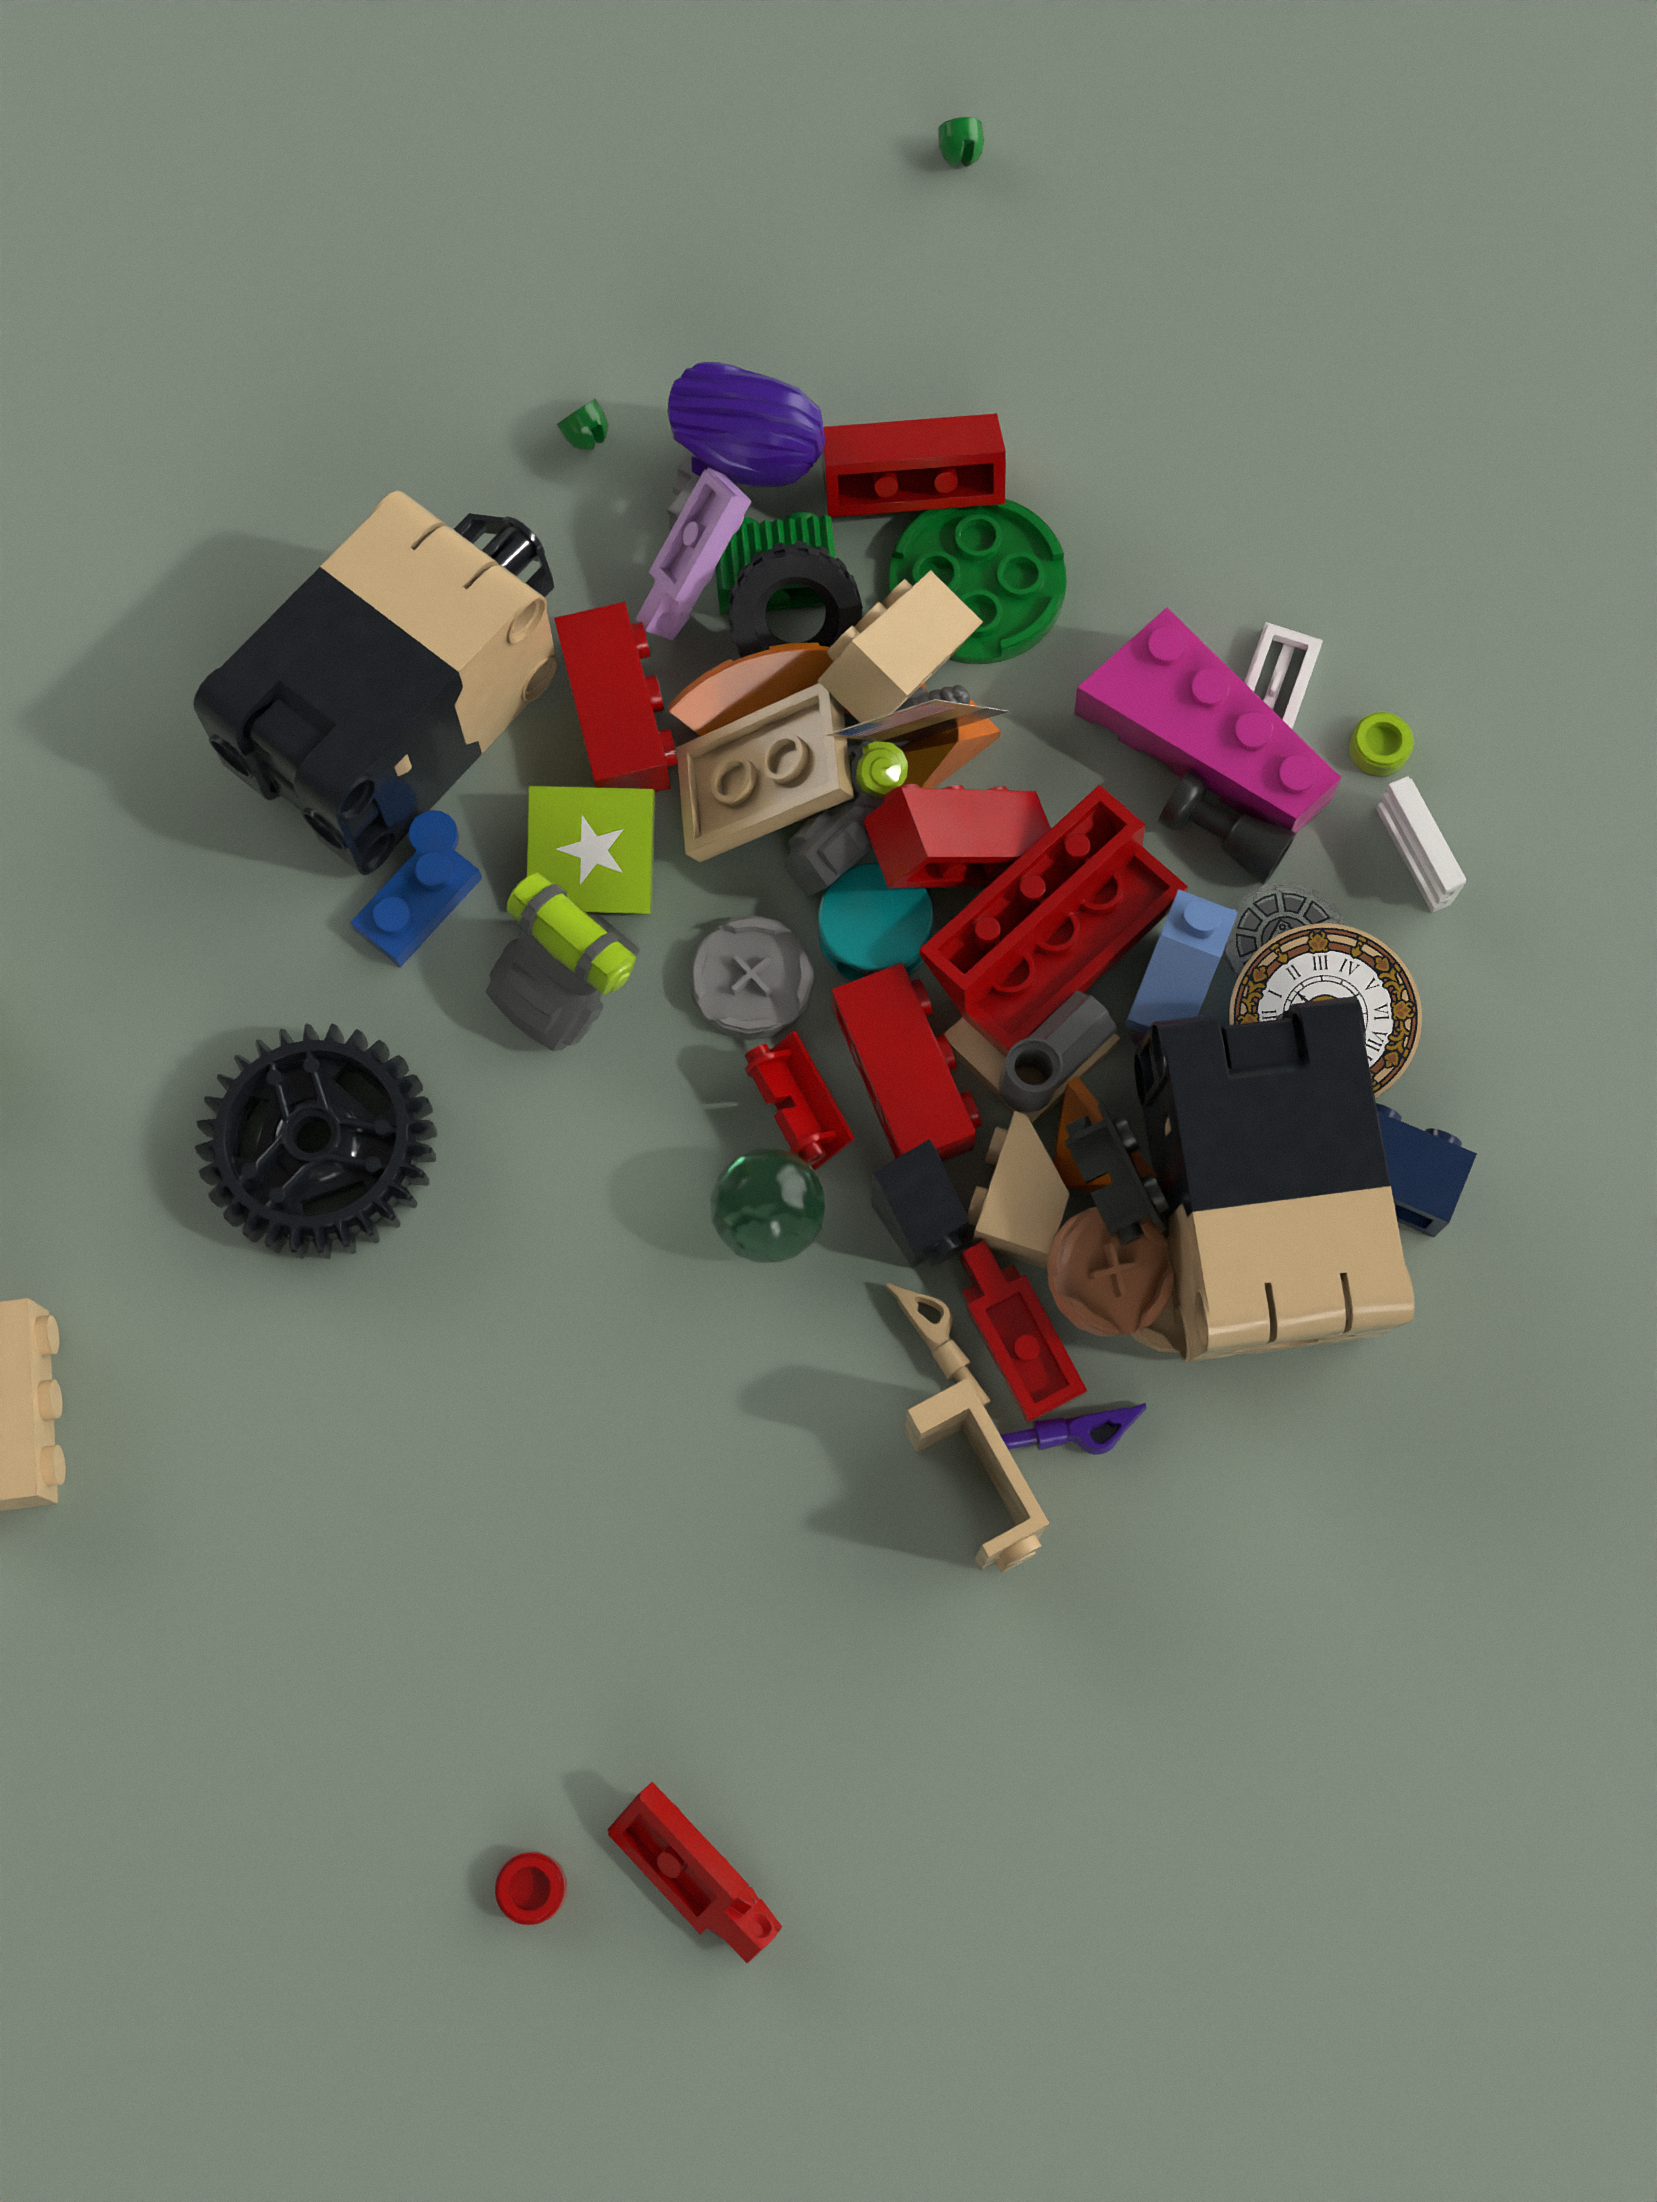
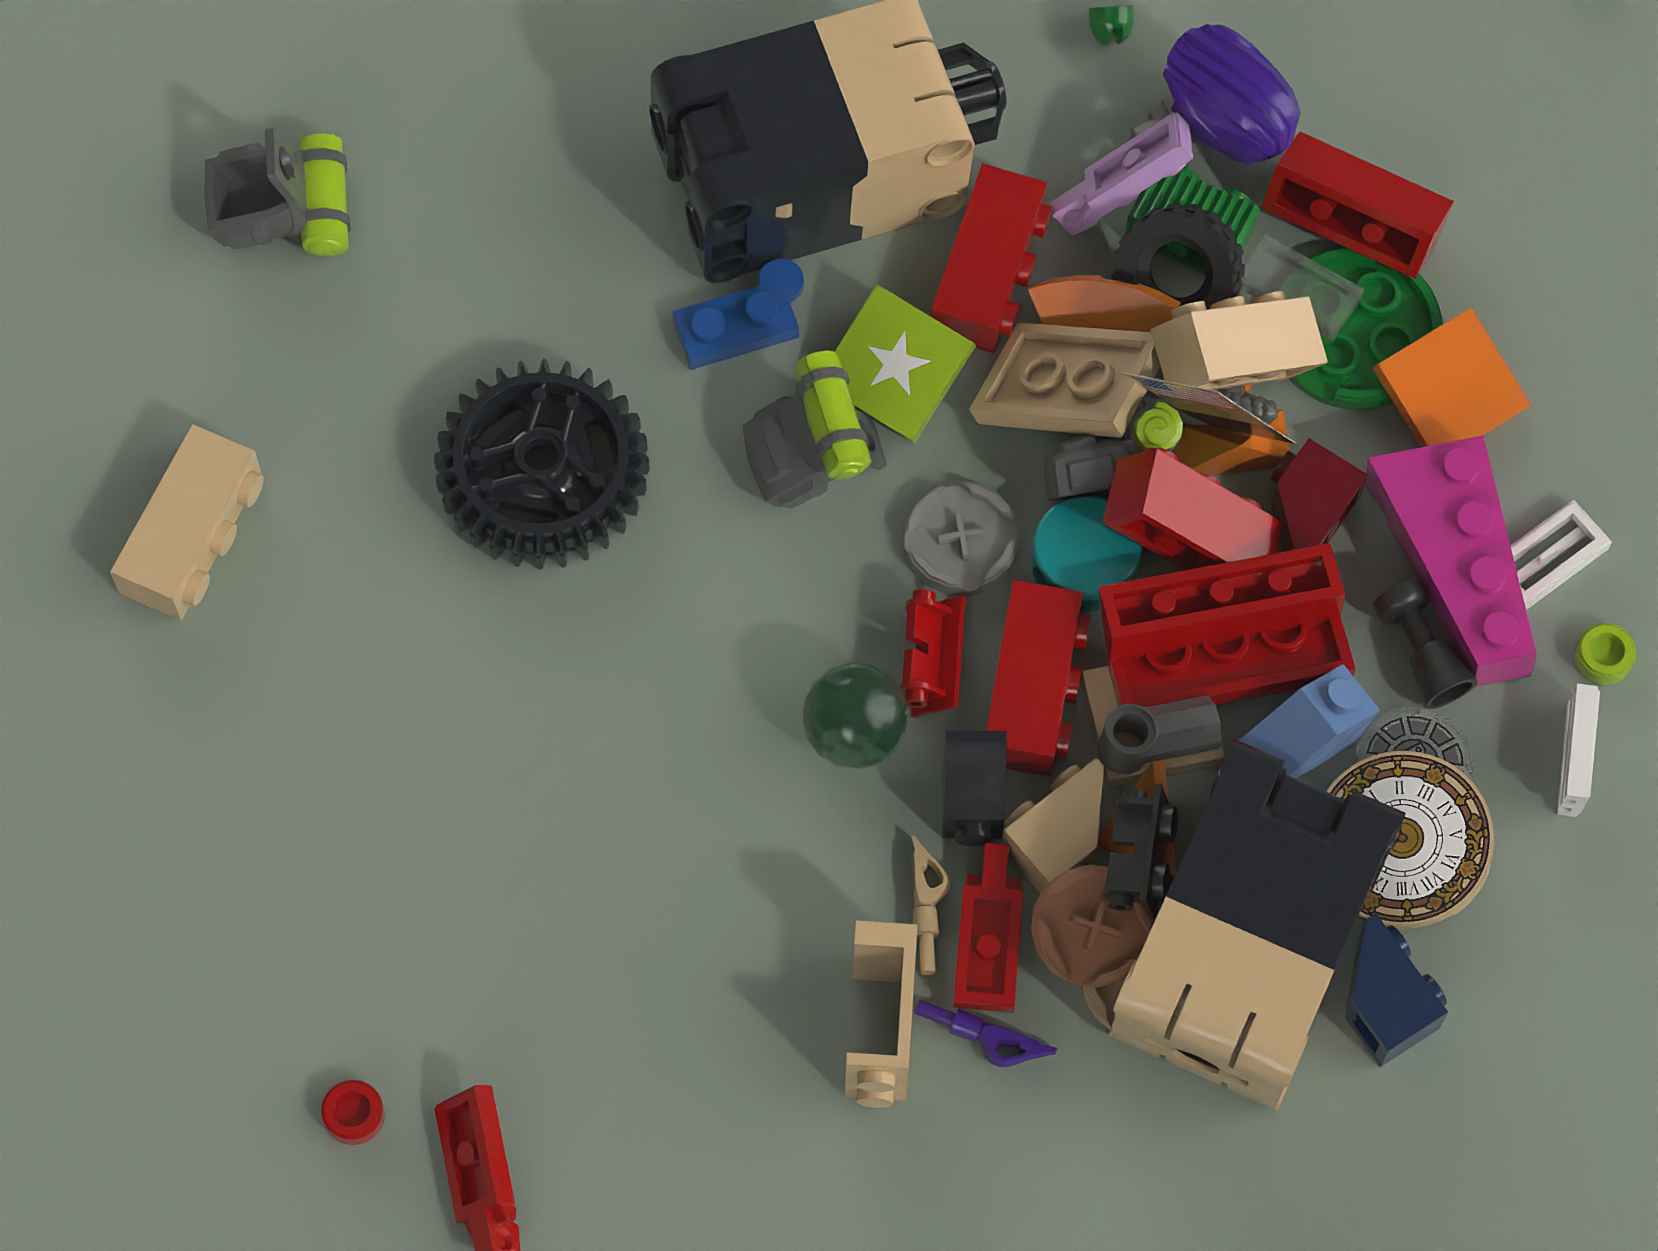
camera: 30 degrees right, 5 degrees down
(885, 562) = (1280, 268): none -> clear tile
(1045, 753) = (1314, 495): none -> dark red slope
(1097, 580) = (1452, 383): none -> orange tile

